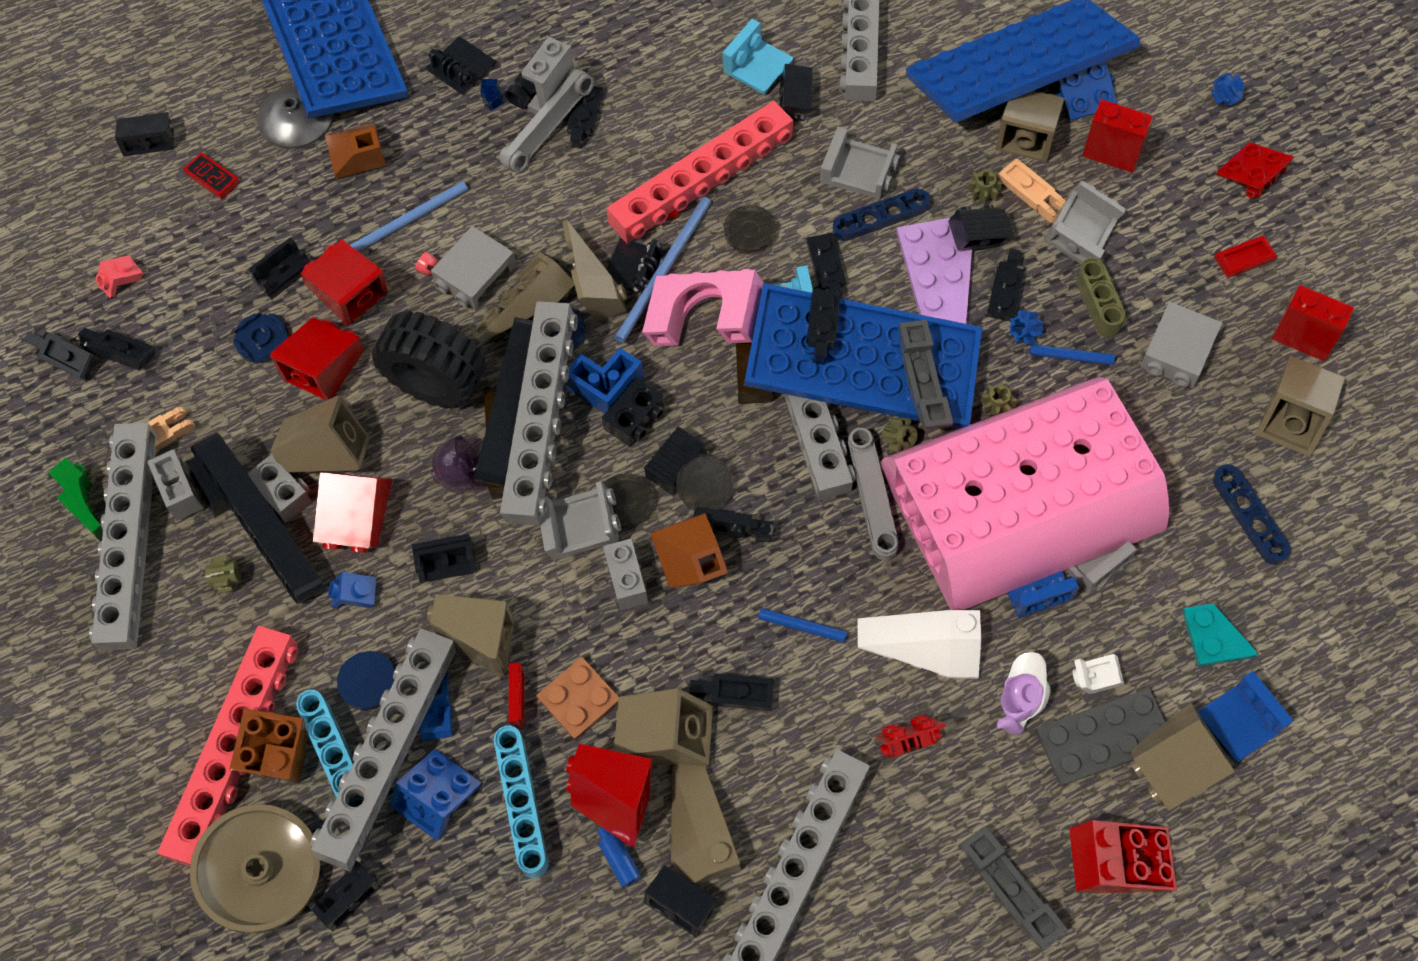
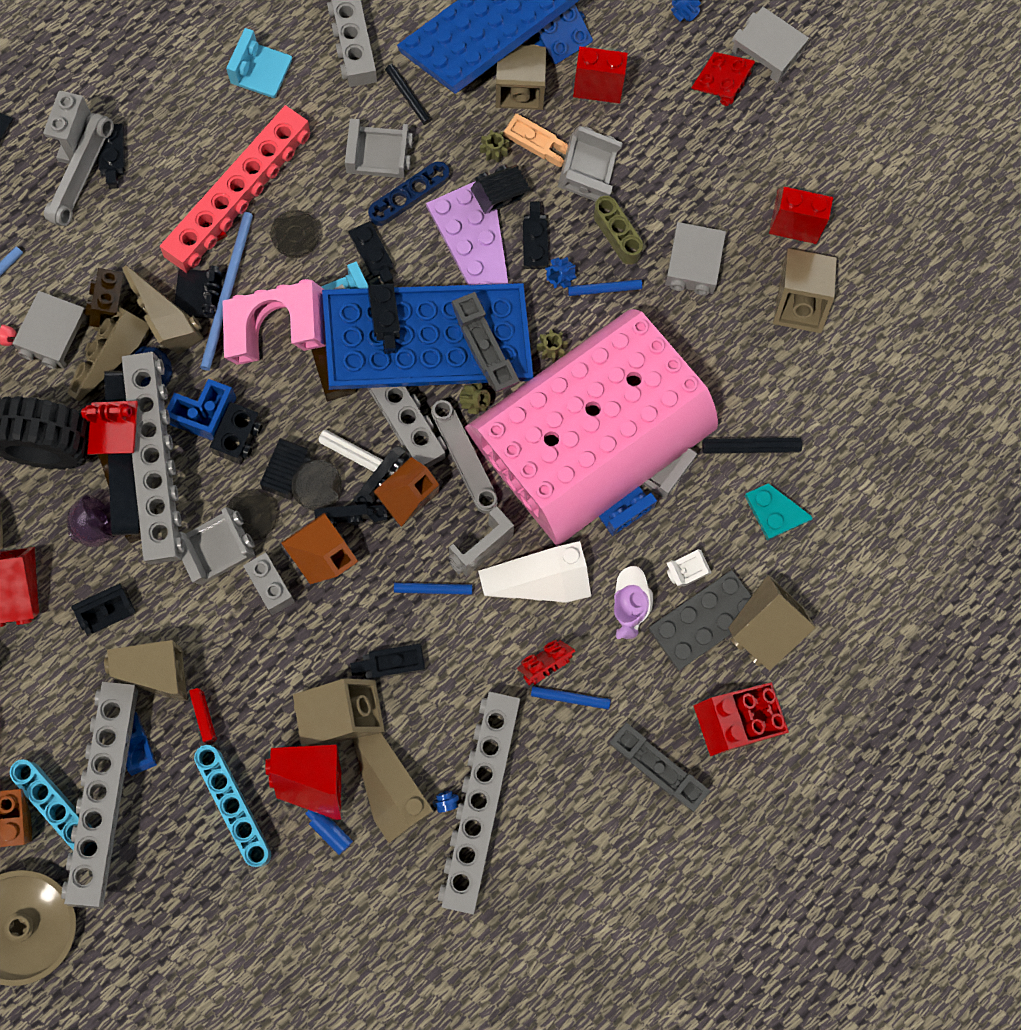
camera: 25 degrees left, 10 degrees up
(344, 897) = (102, 929): black hinge -> none
(352, 590) = (29, 659): blue bracket -> none
(365, 679) = (65, 736): dark blue tile -> none
(432, 793) = (154, 818): blue bracket -> none
(490, 93) = (17, 152): clear blue piece -> none
(505, 368) = (111, 427): none -> red hinge
(520, 92) = (44, 146): black wheel -> none
(537, 244) = (106, 295): none -> dark brown bracket
(578, 698) = (257, 703): nougat plate -> none
(679, 901) = (390, 853): black hinge -> none
(757, 860) = (445, 801): none -> blue plate
(763, 470) = (351, 451): none -> white axle
(772, 492) = (391, 462): none -> black hinge
(796, 91) = (303, 90): black hinge -> none
(801, 512) = (407, 490): none -> dark orange slope
(871, 592) = (501, 533): none -> light grey panel
(905, 118) = (408, 94): none -> black bar
(928, 783) = (569, 697): none -> blue bar
(1203, 558) = (751, 445): none -> black axle
(1245, 256) = (732, 162): red tile -> none
(1245, 717) = (813, 575): blue bracket -> none
(1254, 512) = (787, 393): dark blue beam -> none
(1316, 143) = (770, 42): none -> light grey panel

